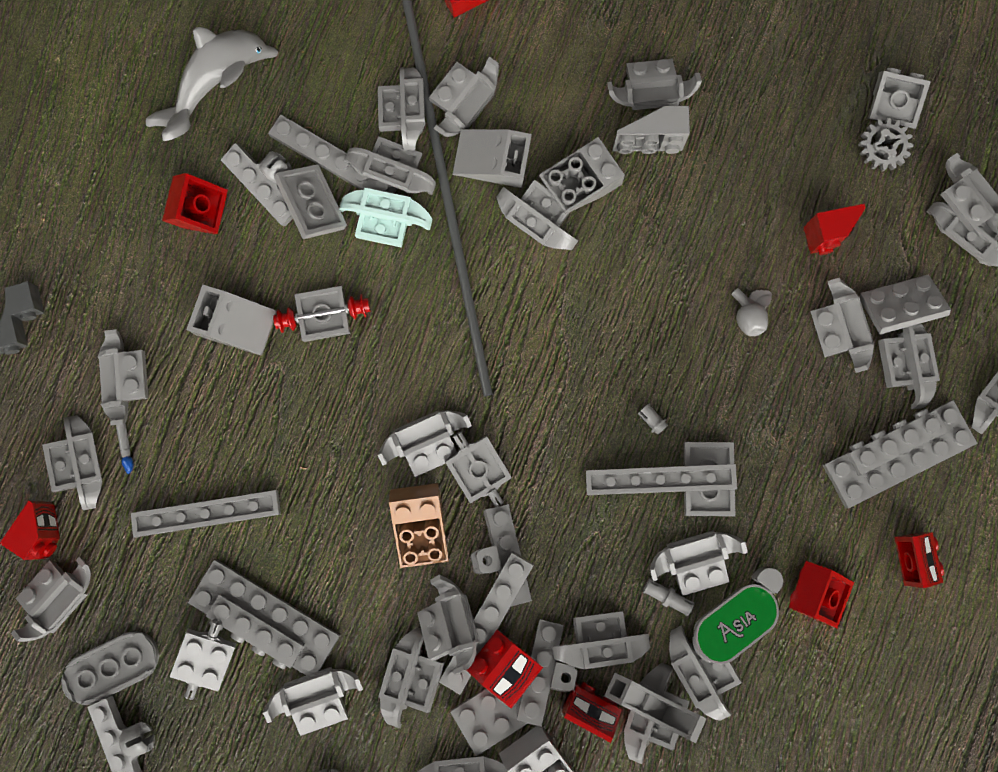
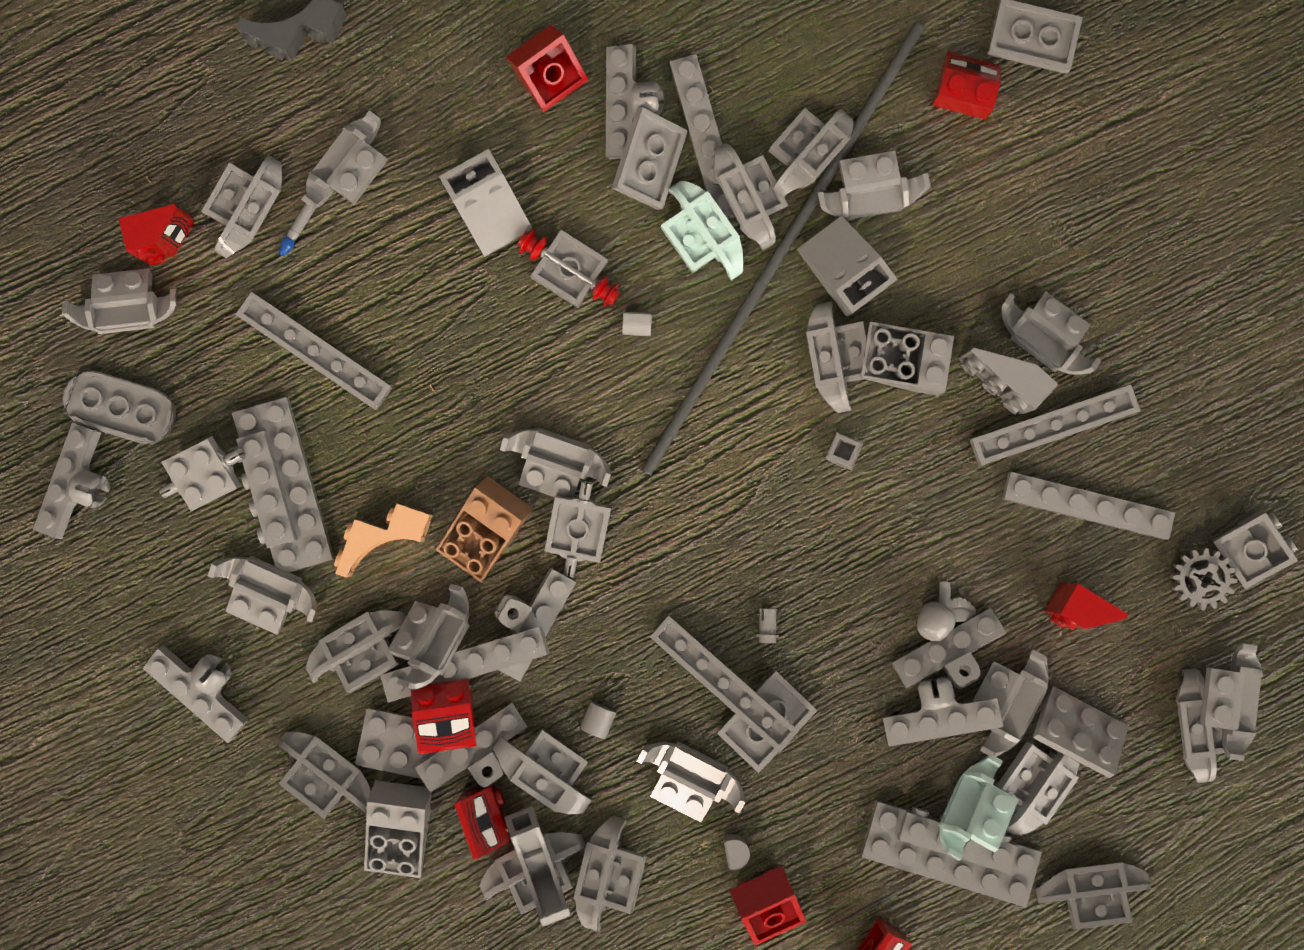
camera: 30 degrees right, 5 degrees up
(347, 602) = (364, 536): none -> light nougat arch
(396, 308) = (637, 324): none -> light grey brick
(597, 268) = (844, 451): none -> light grey brick
(603, 578) = (598, 720): none -> light grey brick
(668, 597) = (637, 786): light grey pin -> none
(708, 136) = (1055, 425): none -> light grey plate
(735, 624) = (671, 862): green tile -> none
(775, 166) = (1088, 506): none -> light grey plate
(781, 330) = (951, 653): none -> light grey plate
(812, 373) = (941, 716): none -> light grey plate
(890, 411) = (976, 810): none -> light aqua plate

